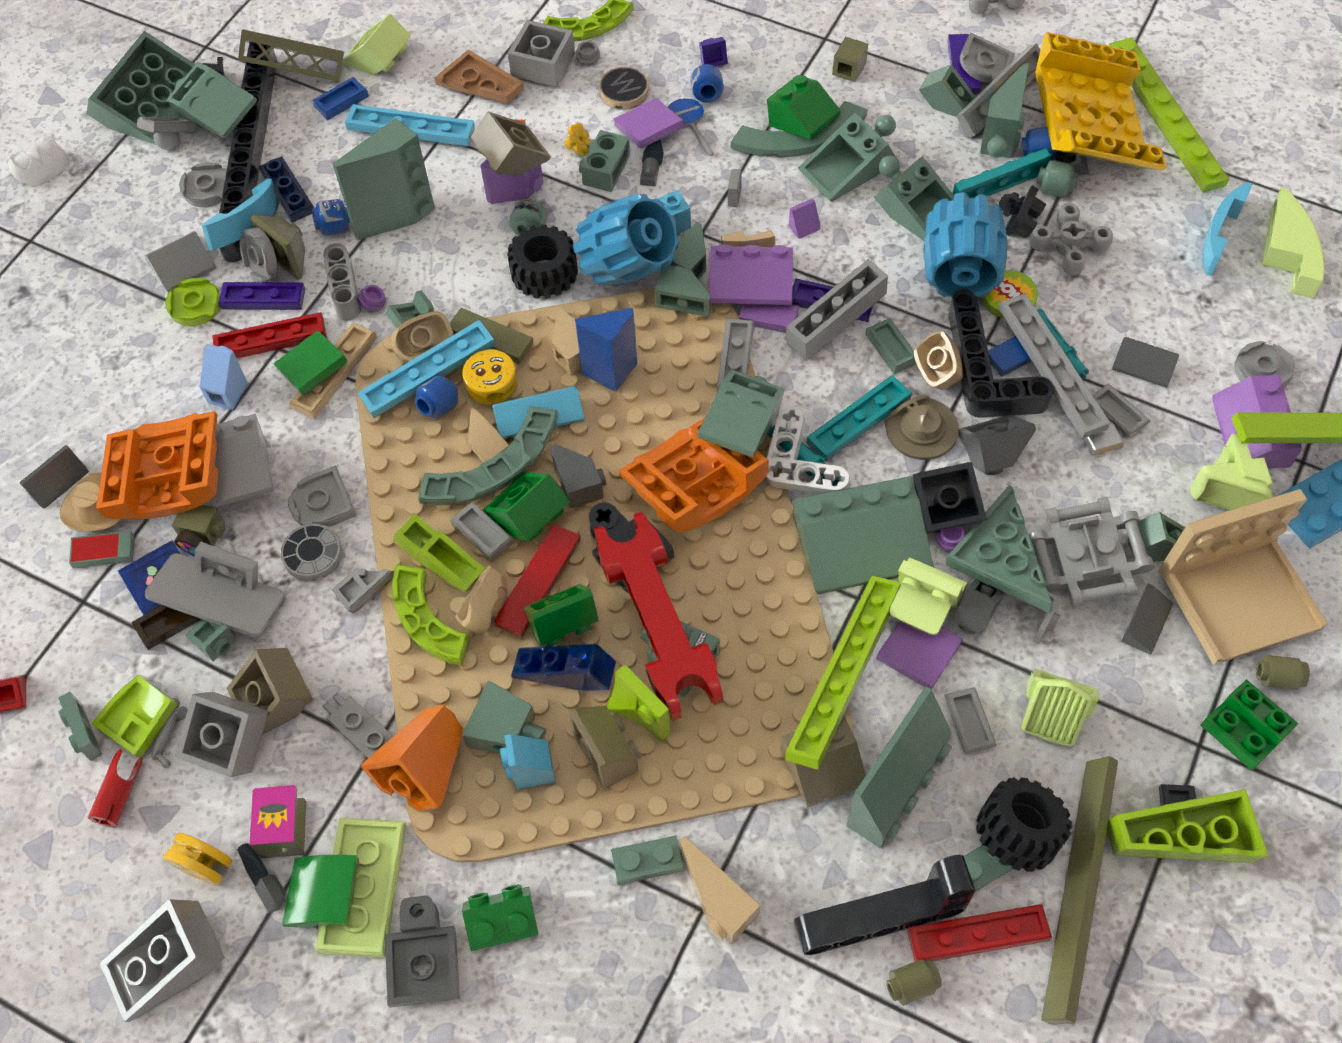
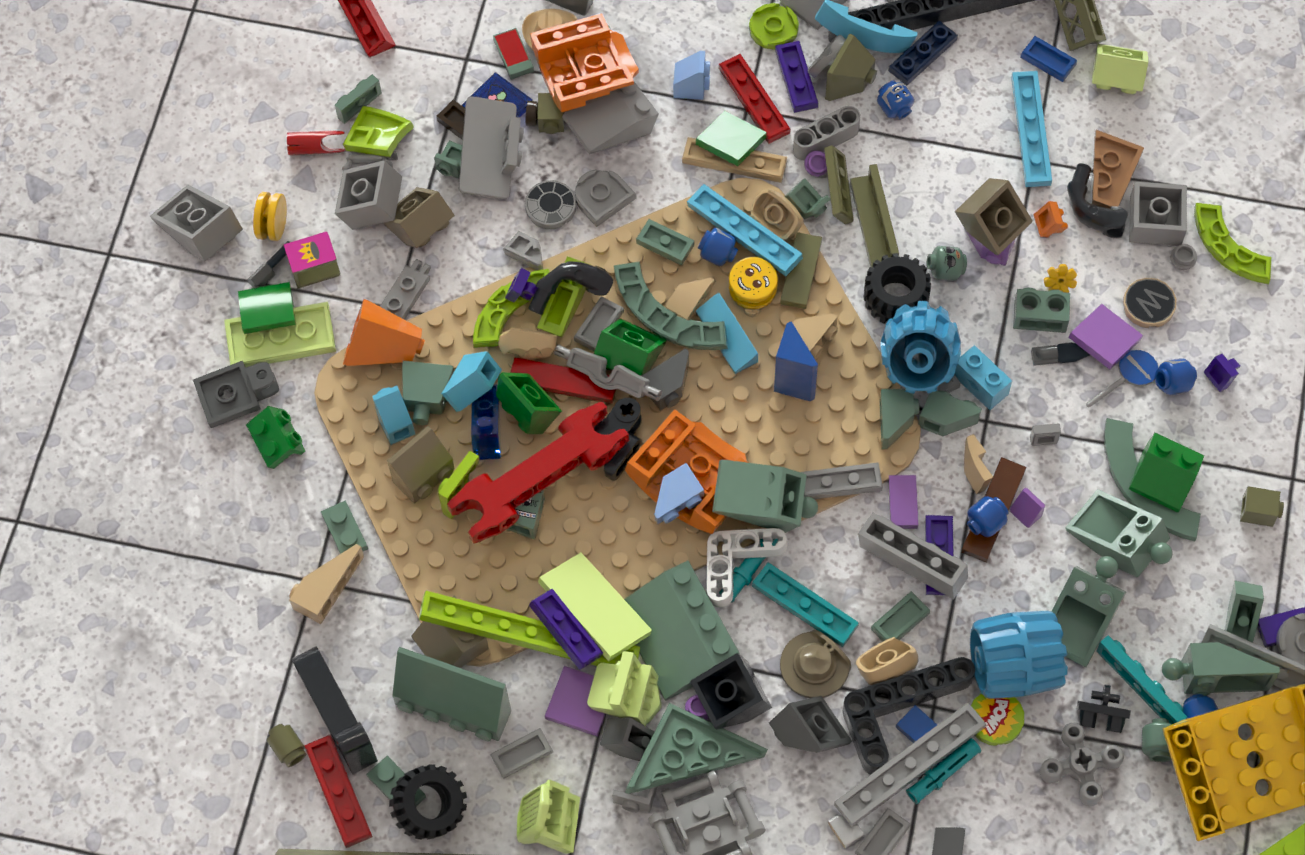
camera: 75 degrees right, 5 degrees up
(385, 181) = (925, 127): sand green slope -> none
(405, 283) = (838, 185): none -> olive tile
(409, 445) = (665, 242): none -> sand green plate
(412, 590) = (521, 287): none -> dark purple tile
(432, 513) = (594, 278): none -> black piece
(456, 267) = (873, 215): none -> olive fence
(511, 665) = (471, 379): none -> medium azure slope
(522, 102) = (1108, 220): none -> black piece
(563, 514) = (595, 368): none -> light grey piece
(719, 488) = (677, 491): none -> light blue slope
(751, 274) = (933, 472): medium lavender slope -> none
(805, 250) = (1003, 486): none -> reddish brown tile
(812, 242) = (987, 516): none -> blue head
(821, 602) = (596, 606): none -> yellowish green tile
(848, 630) = (566, 629): none -> dark purple tile

